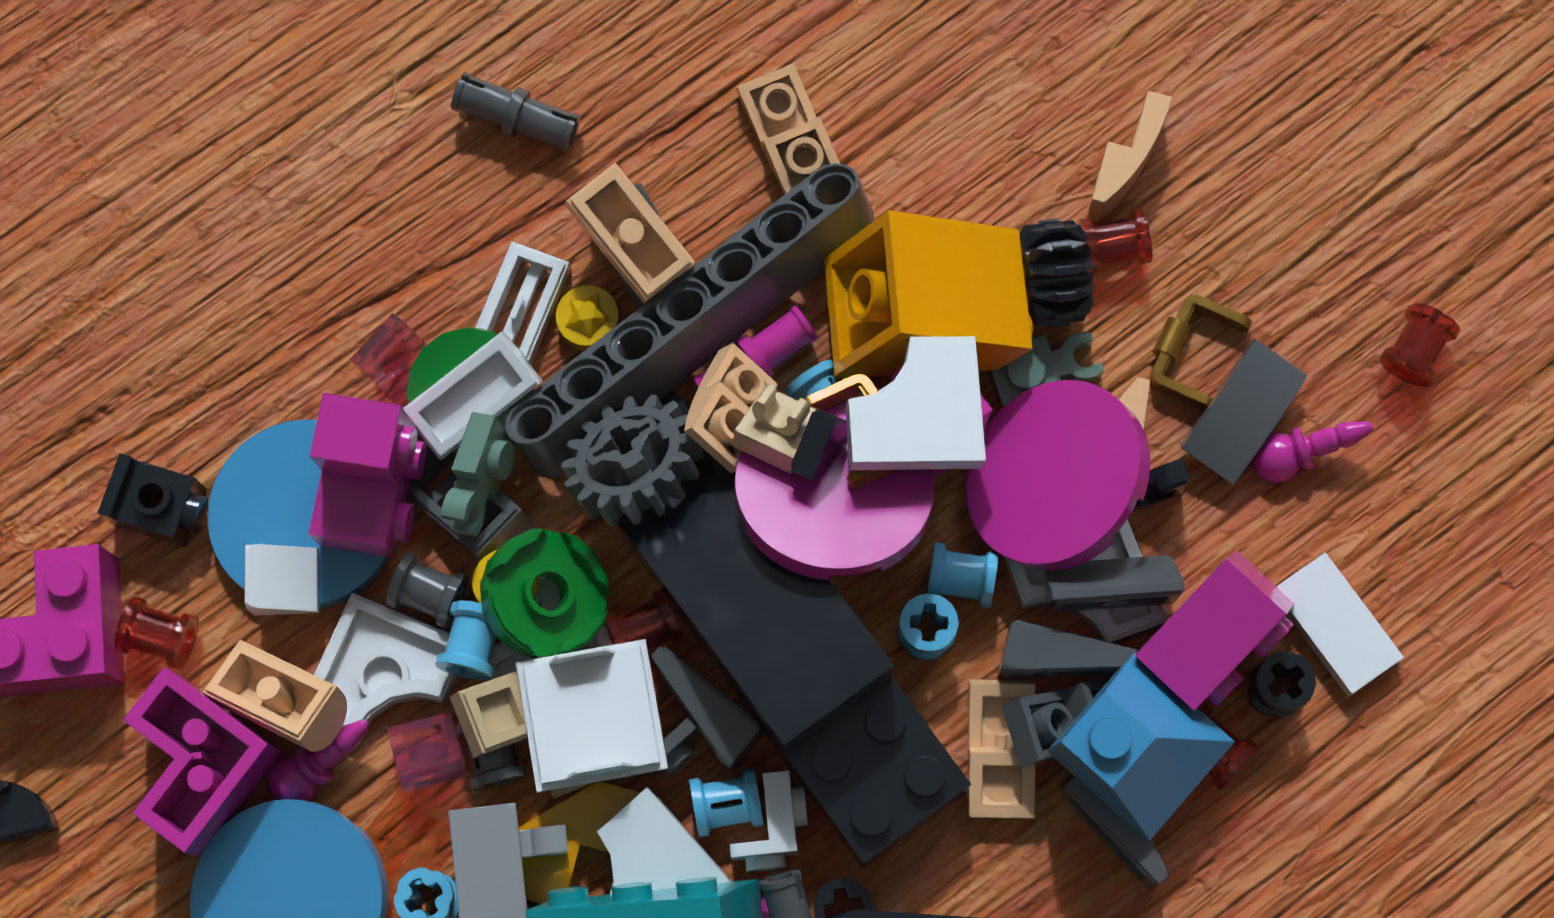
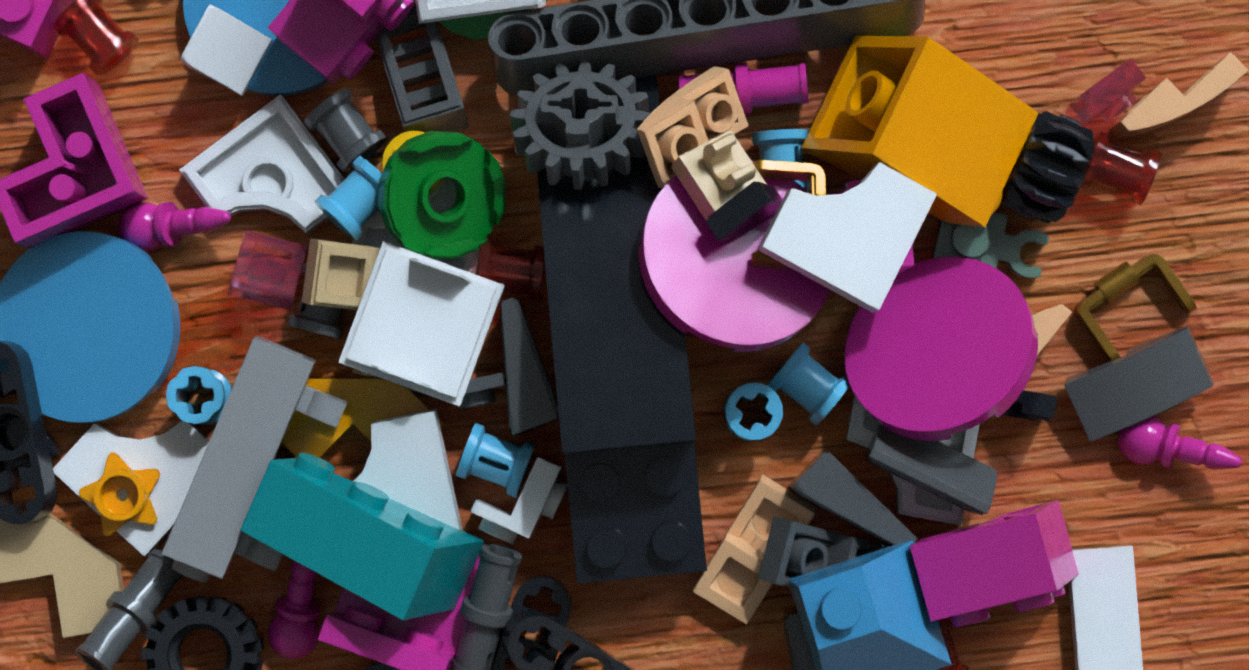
camera: 30 degrees right, 10 degrees up
(279, 697) = (167, 152): light nougat brick -> none
(480, 465) = (449, 50): sand green plate -> none
(1069, 184) = (1110, 94): none -> clear pink plate
(1277, 666) = (1037, 650): black bush -> none

